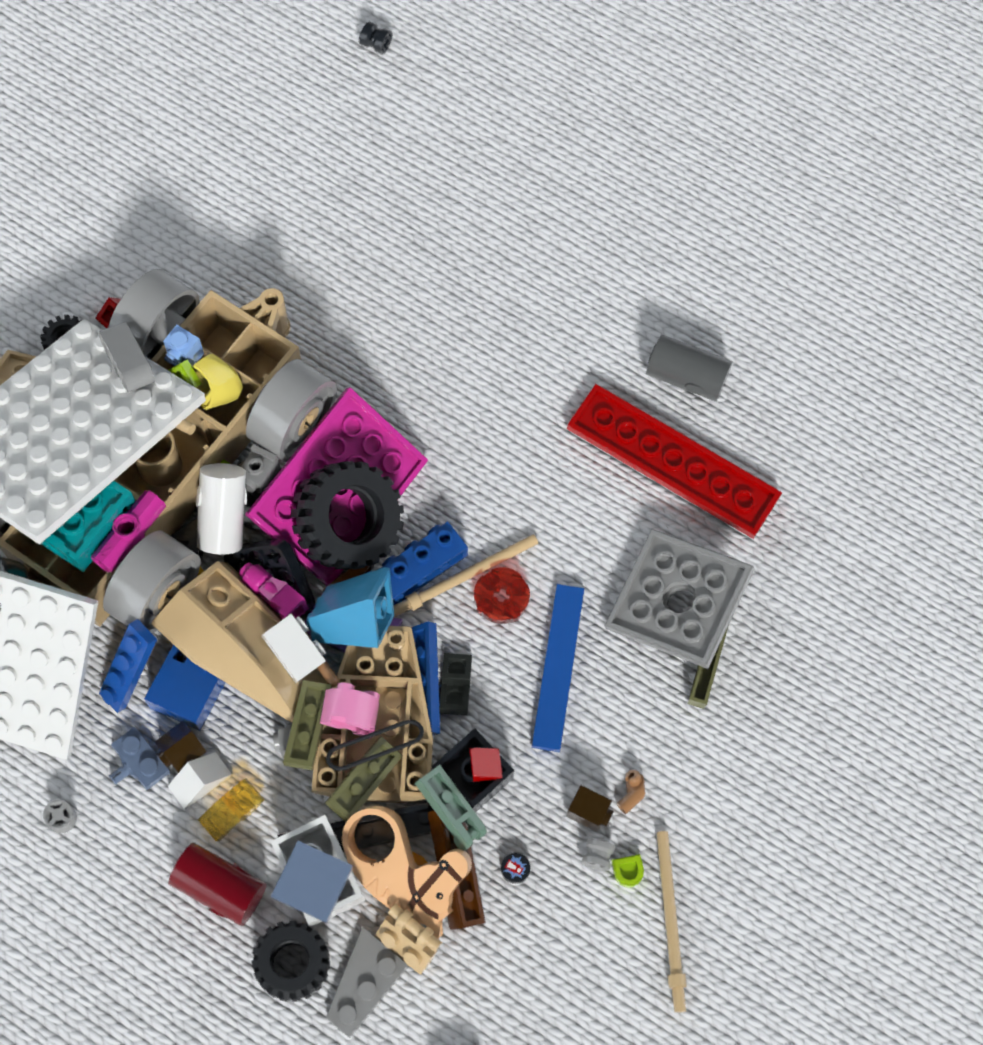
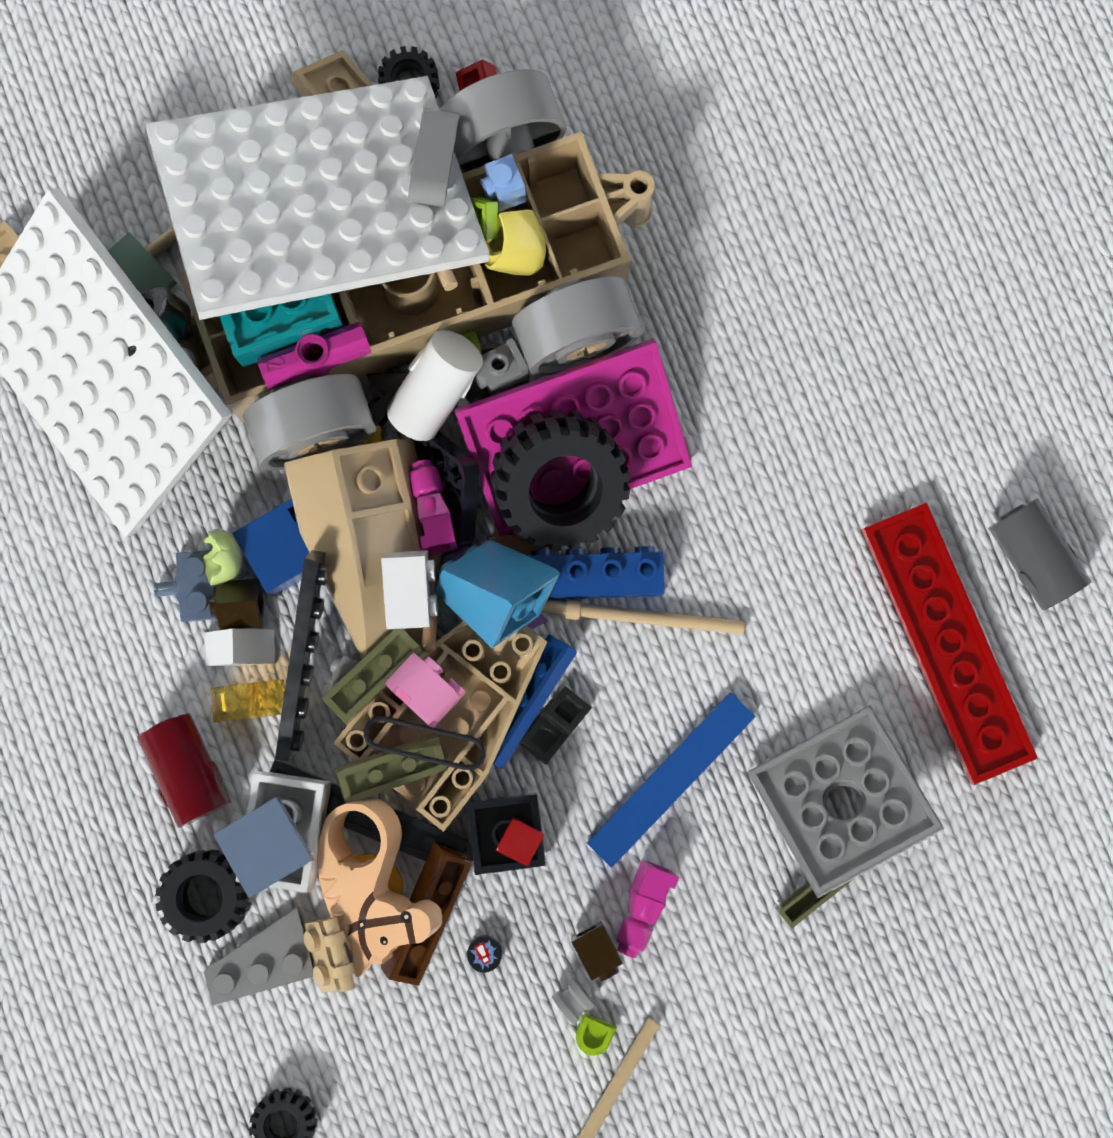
camera: 35 degrees right, 15 degrees up
(55, 812) = (75, 589): light grey wheel -> none
(127, 665) = (233, 490): blue plate -> none
(148, 721) = (224, 559): none -> yellowish green hair
(256, 757) = (303, 644): none -> black plate
(451, 807) = (455, 860): sand green plate -> none
(509, 609) = (645, 665): clear red plate -> none
(599, 757) = (645, 905): none -> dark pink piece
(635, 791) = (657, 960): medium nougat arm -> none

